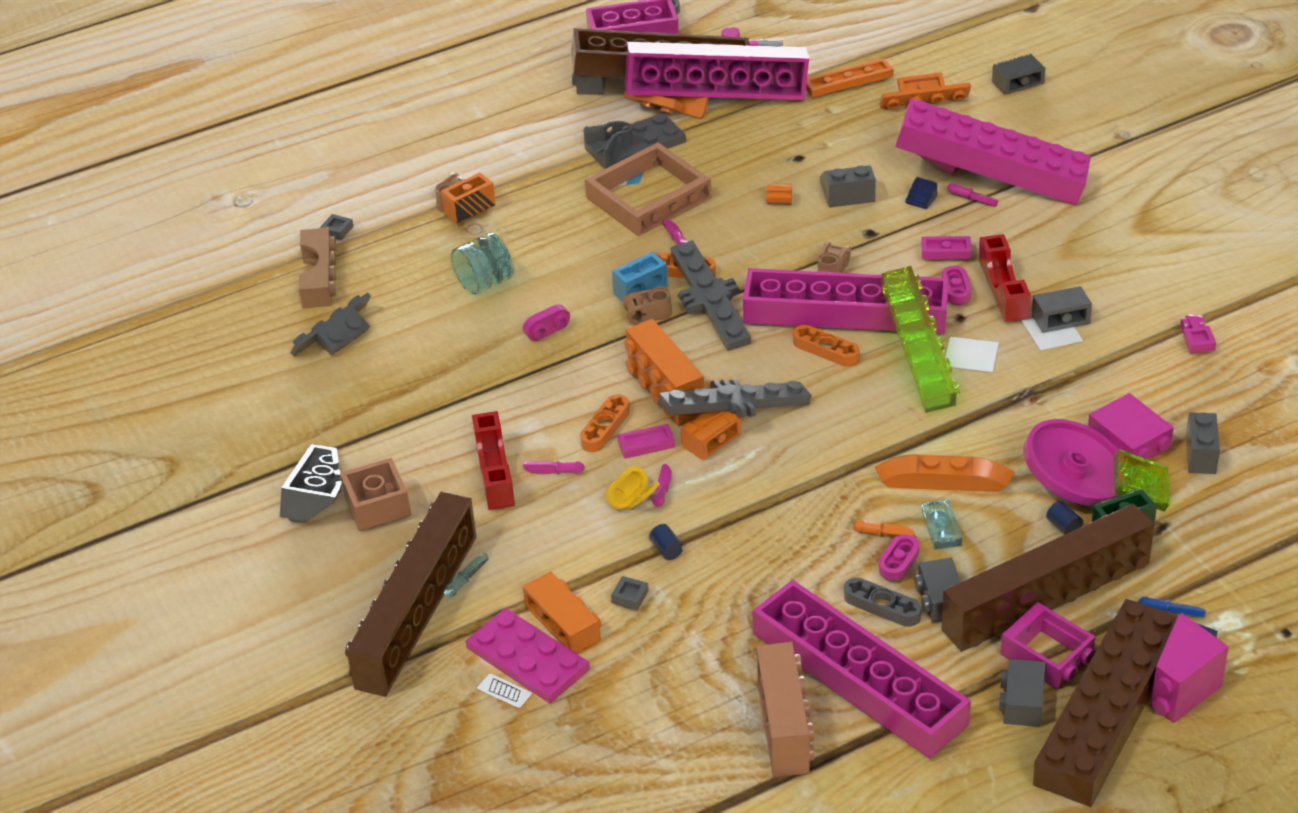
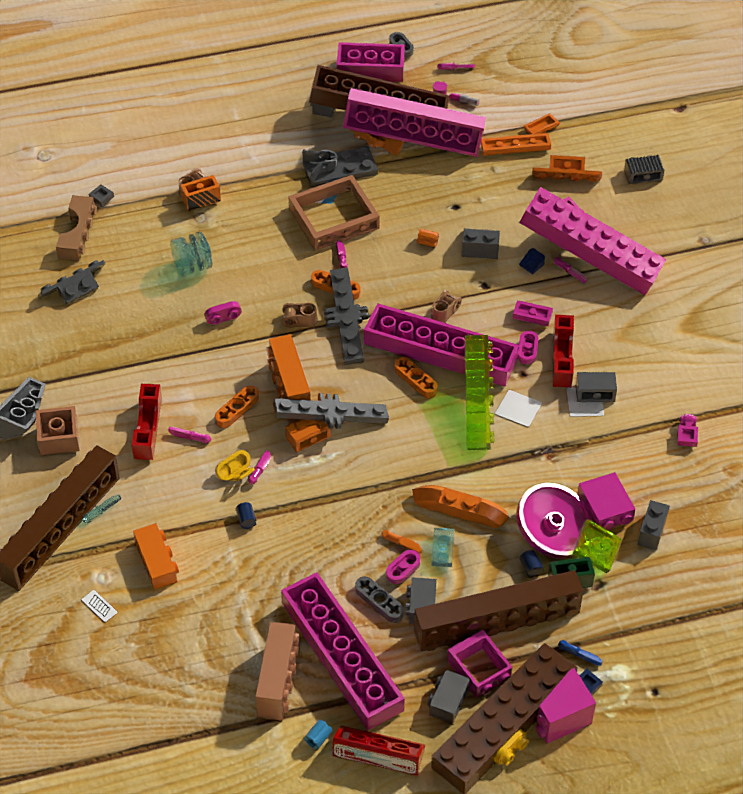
camera: 10 degrees right, 10 degrees up
(528, 655) = (123, 582): dark pink plate -> none
(629, 593) = (207, 550): dark grey plate -> none
(640, 275) = (300, 290): dark azure brick -> none
(646, 441) = (261, 428): dark pink tile -> none
(734, 14) = (451, 66): none -> dark pink piece
(866, 776) = (318, 734): none -> dark azure piece
(871, 52) = (541, 124): none -> orange tile
(956, 779) = (378, 750): none -> red slope
(1129, 742) = (517, 741): none -> yellow bracket

